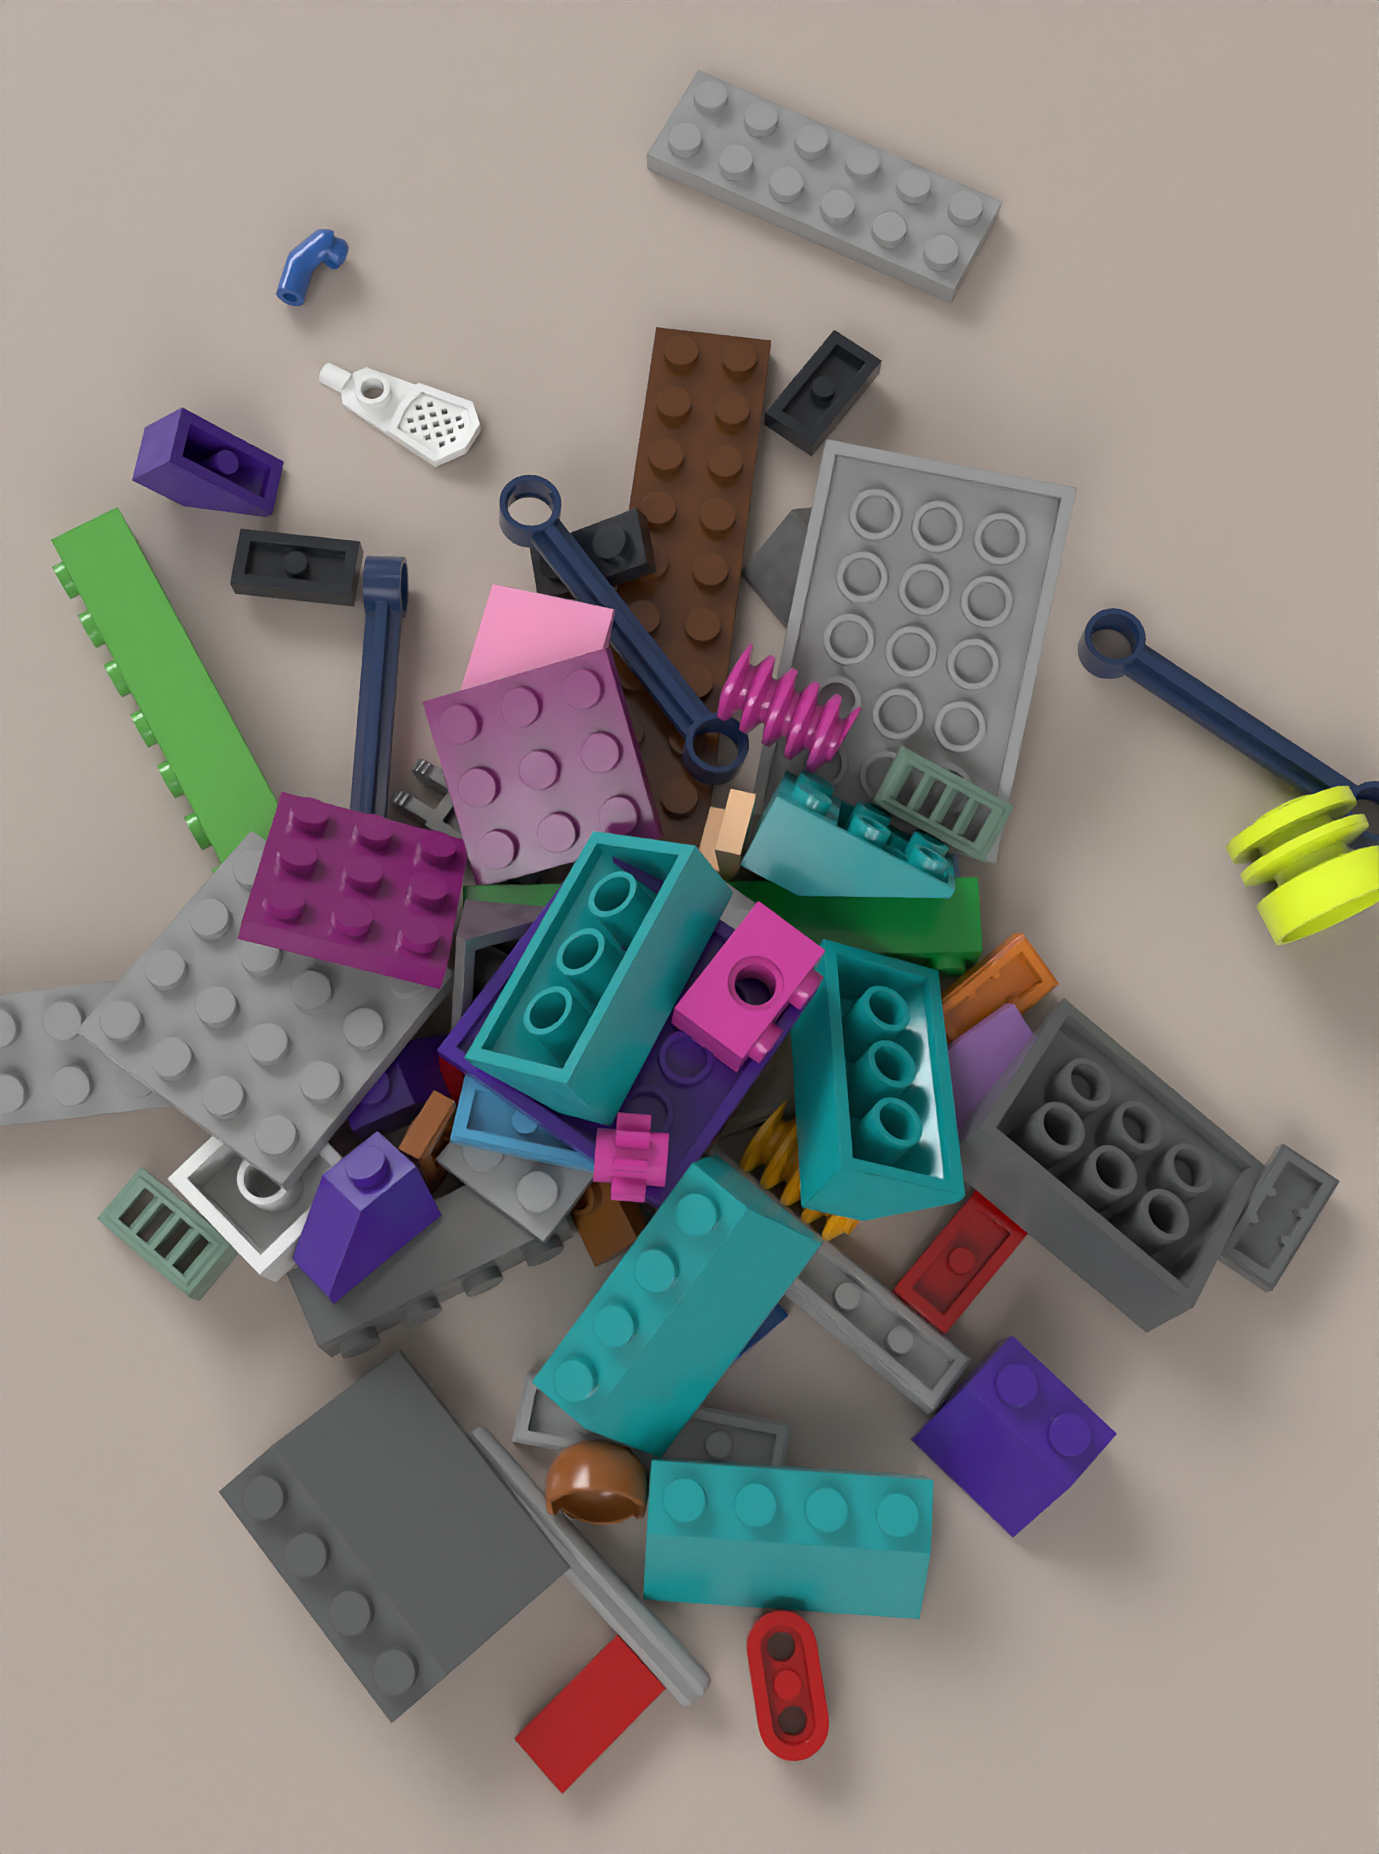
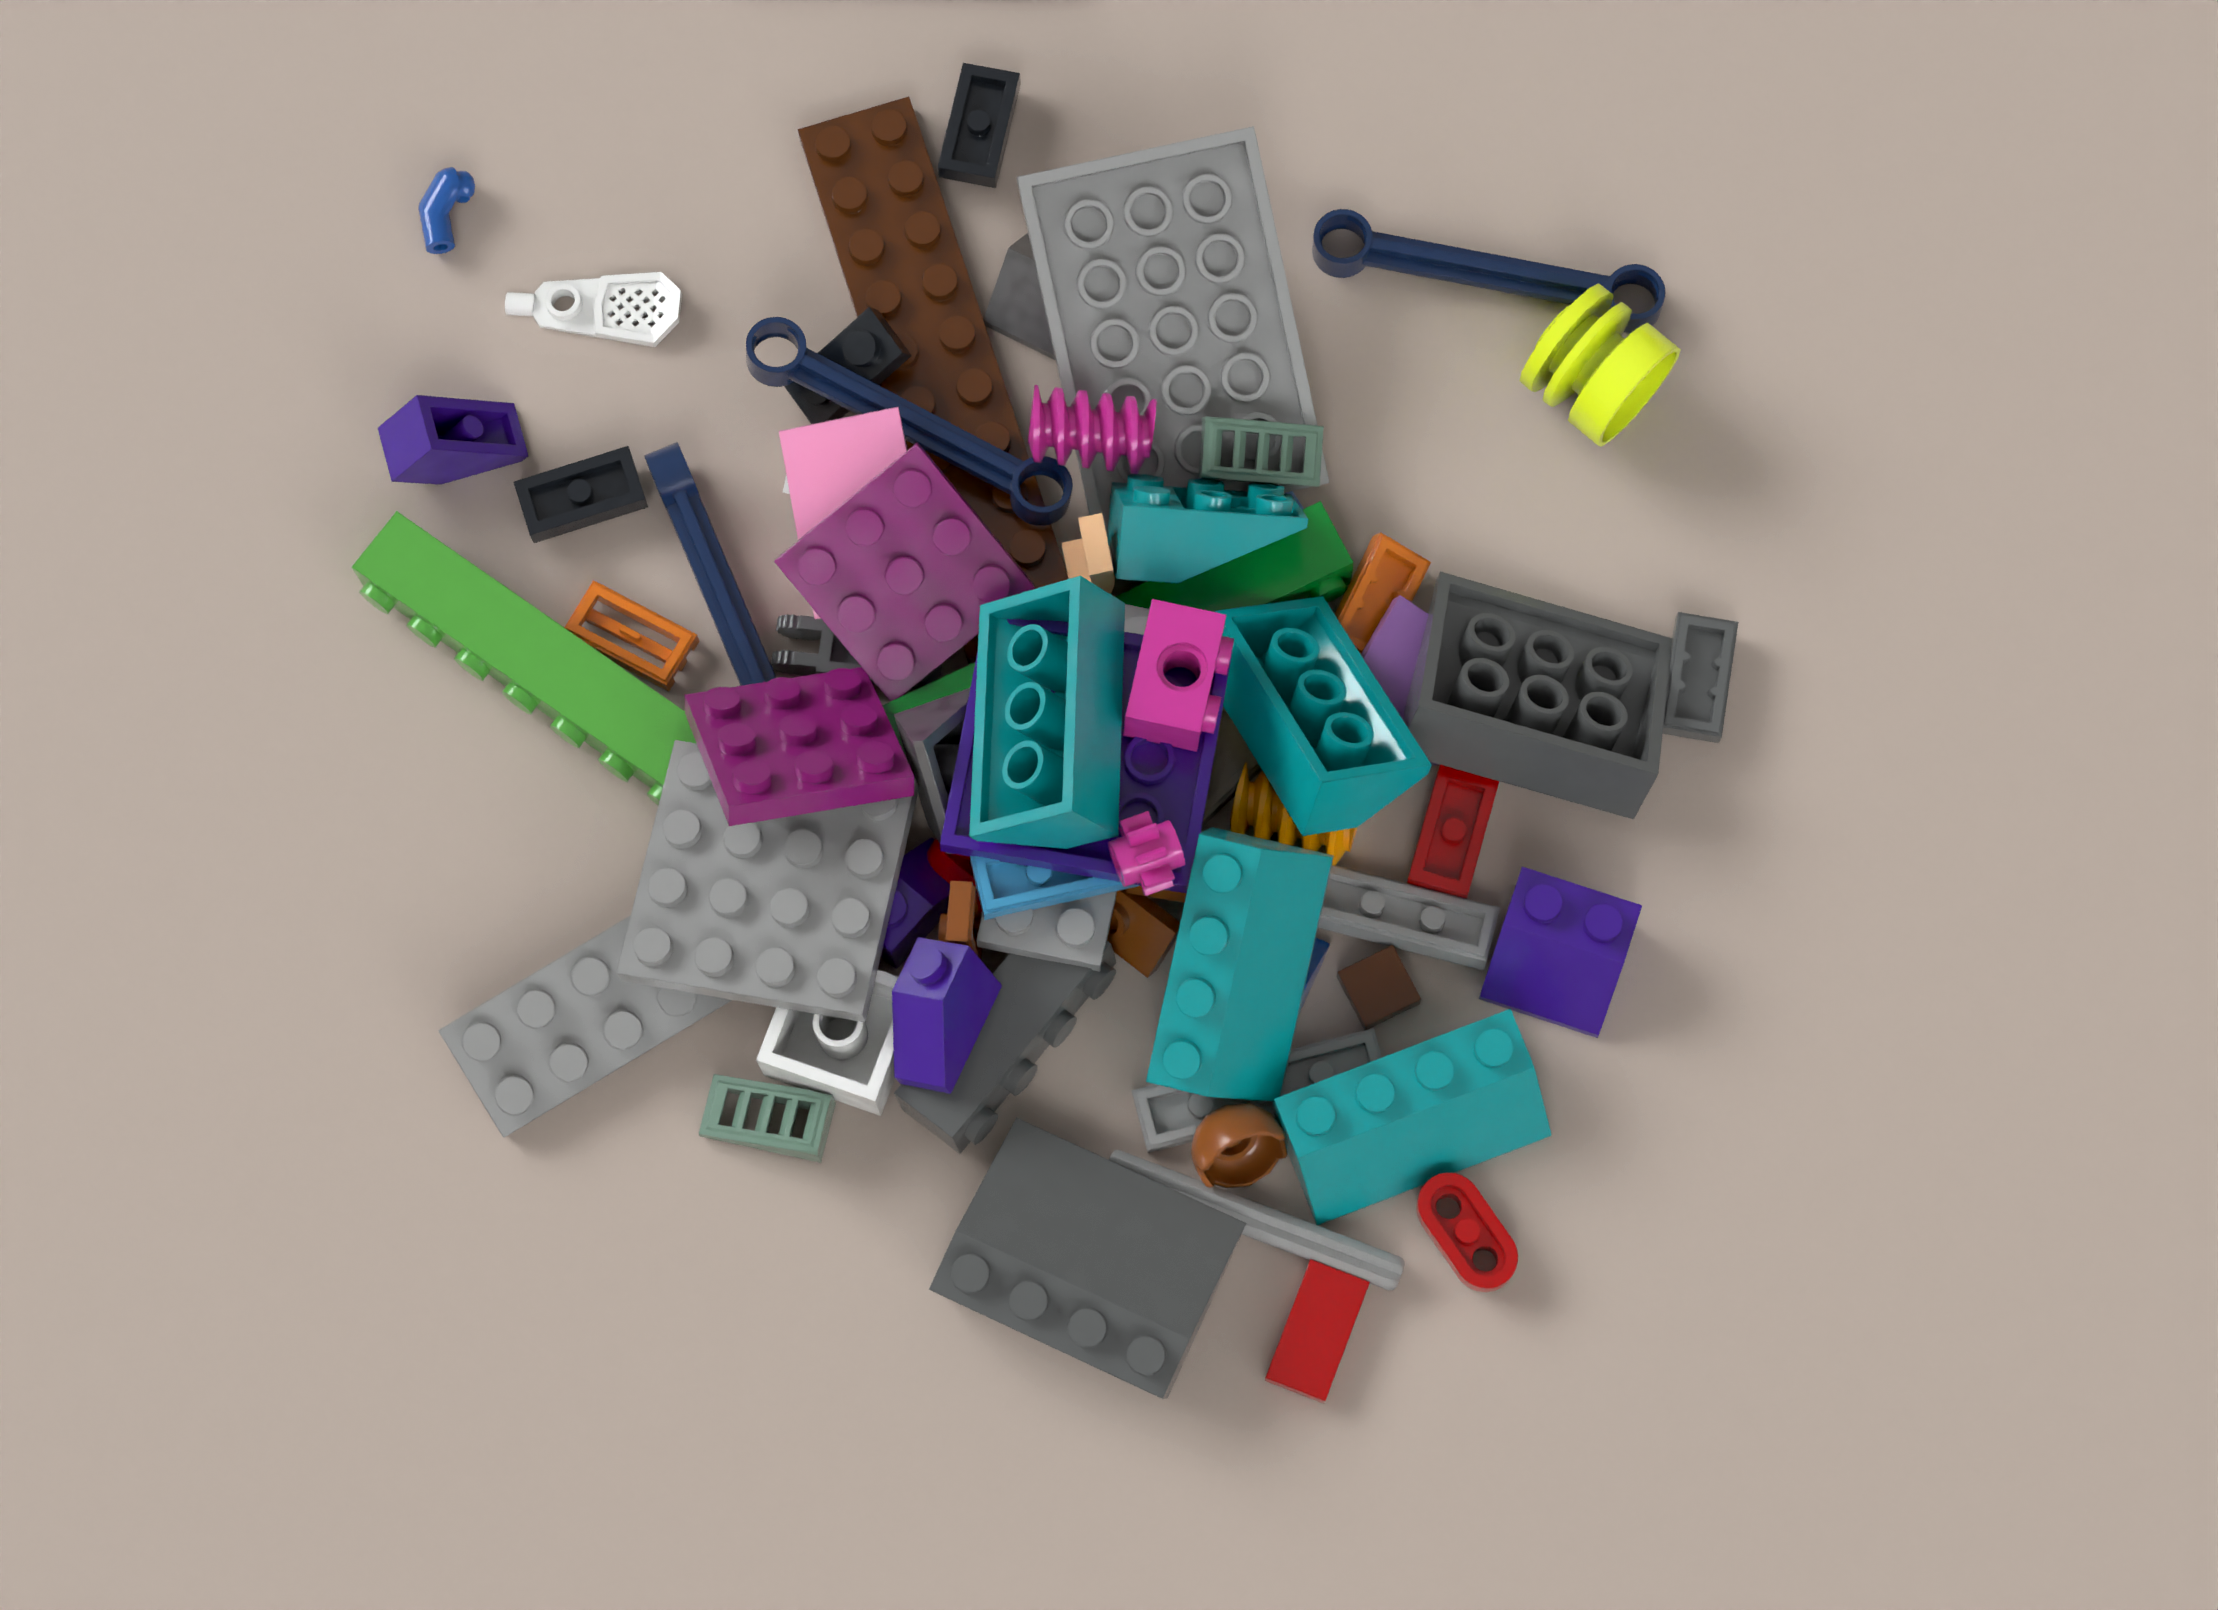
camera: 20 degrees left, 0 degrees up
(306, 754) = (673, 660): none -> orange tile
(815, 1383) = (1378, 987): none -> reddish brown tile

